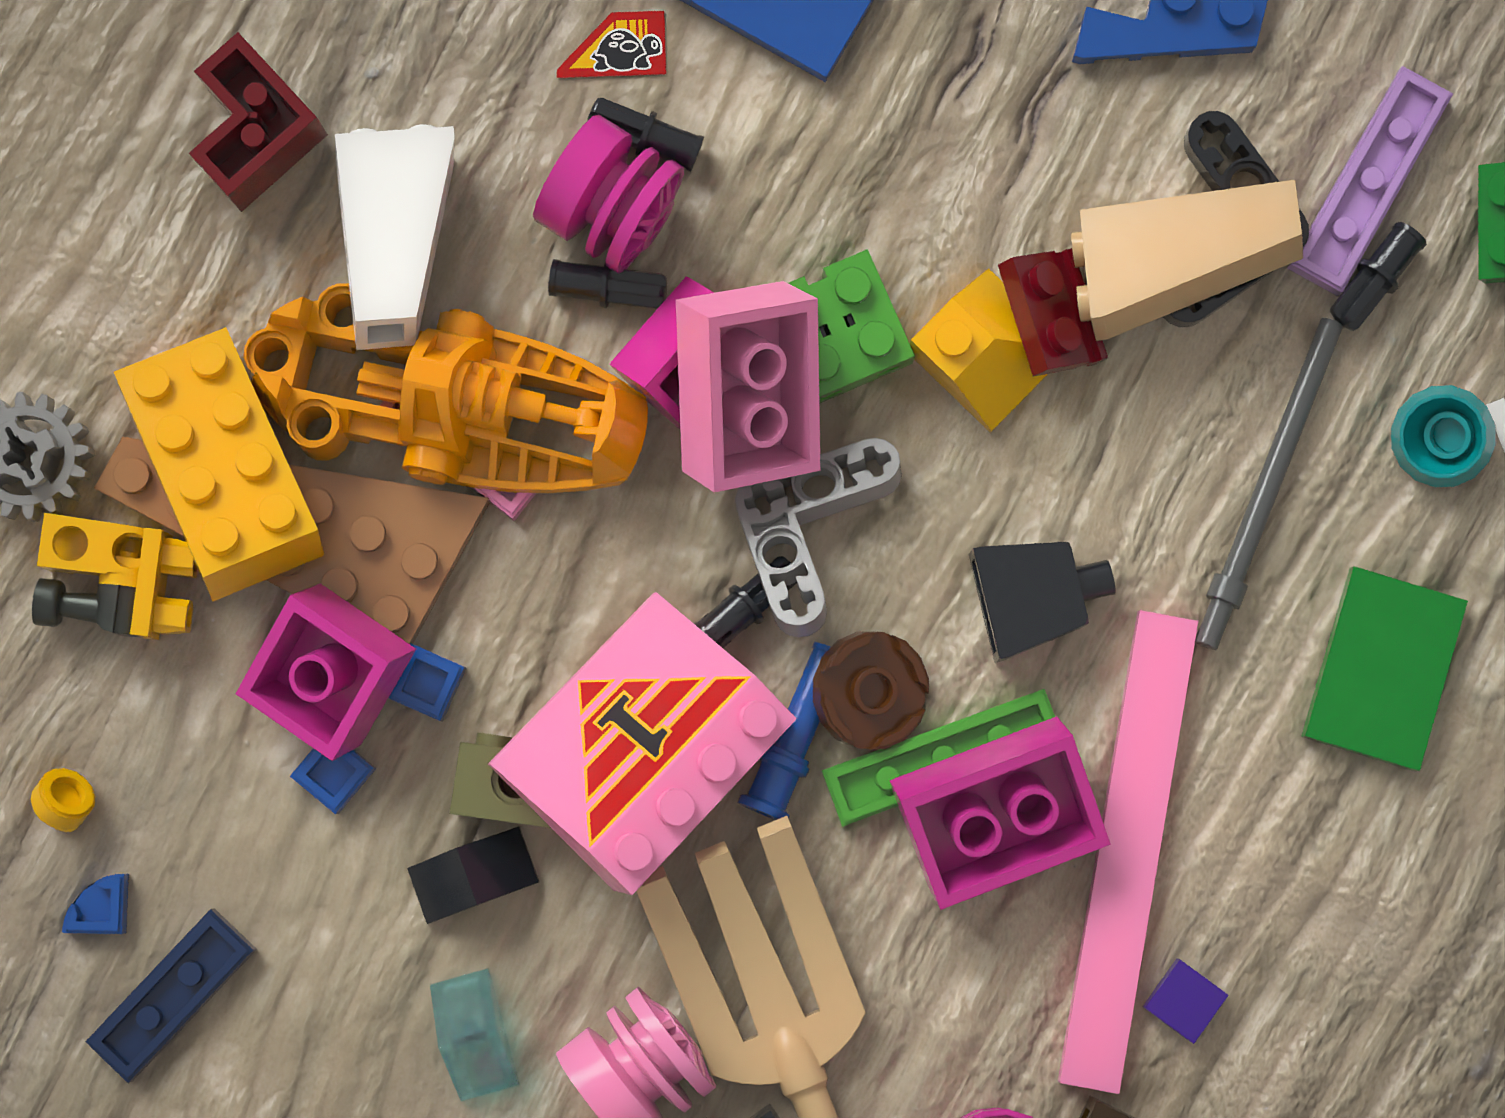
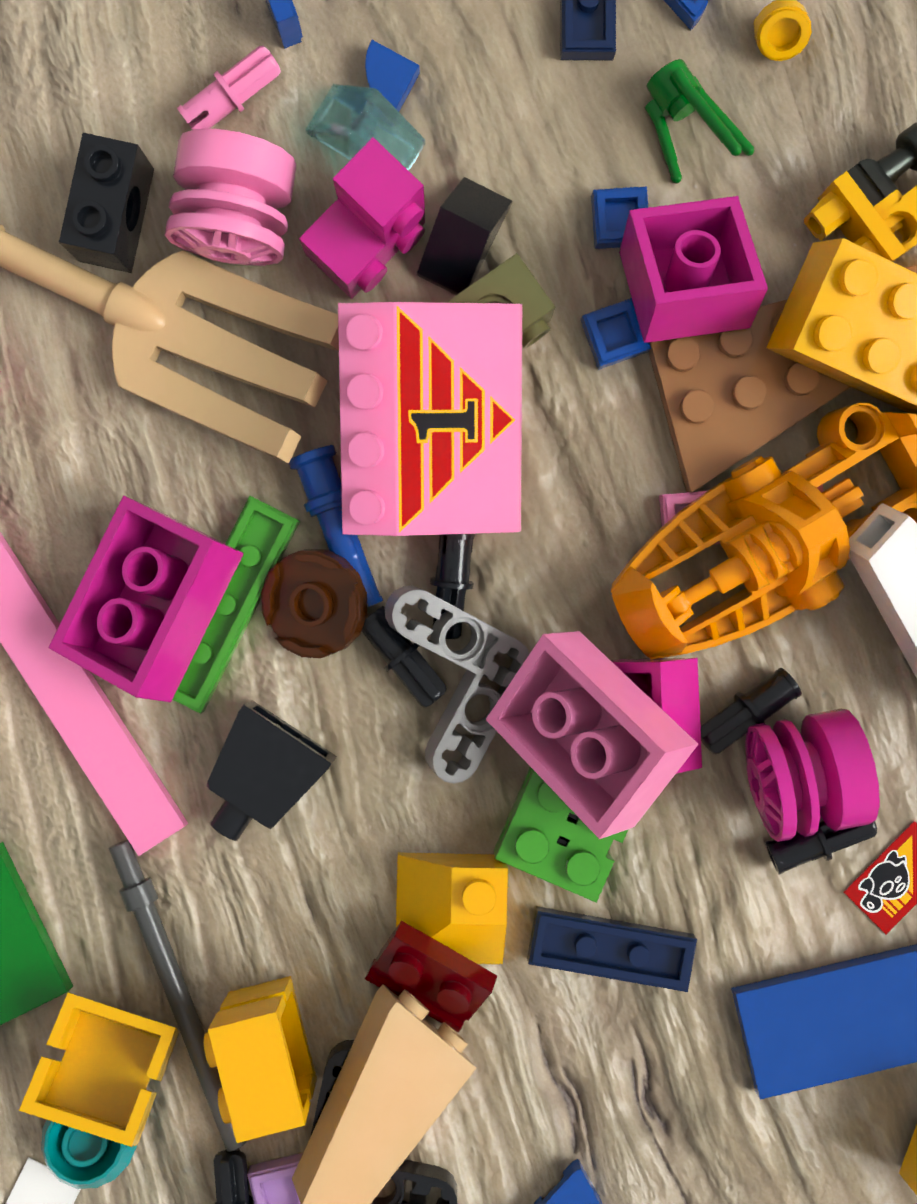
camera: 135 degrees right, 5 degrees up
(194, 825) = (678, 95): none -> green plant
(410, 1063) = (390, 73): none -> blue tile
(546, 952) = (372, 219): none -> dark pink brick
(841, 580) = (403, 659): none -> black axle
(891, 200) = (611, 949): none -> dark blue tile
(1237, 371) = (261, 1060): none -> yellow piece
(1371, 478) = (102, 1072): none -> yellow piece

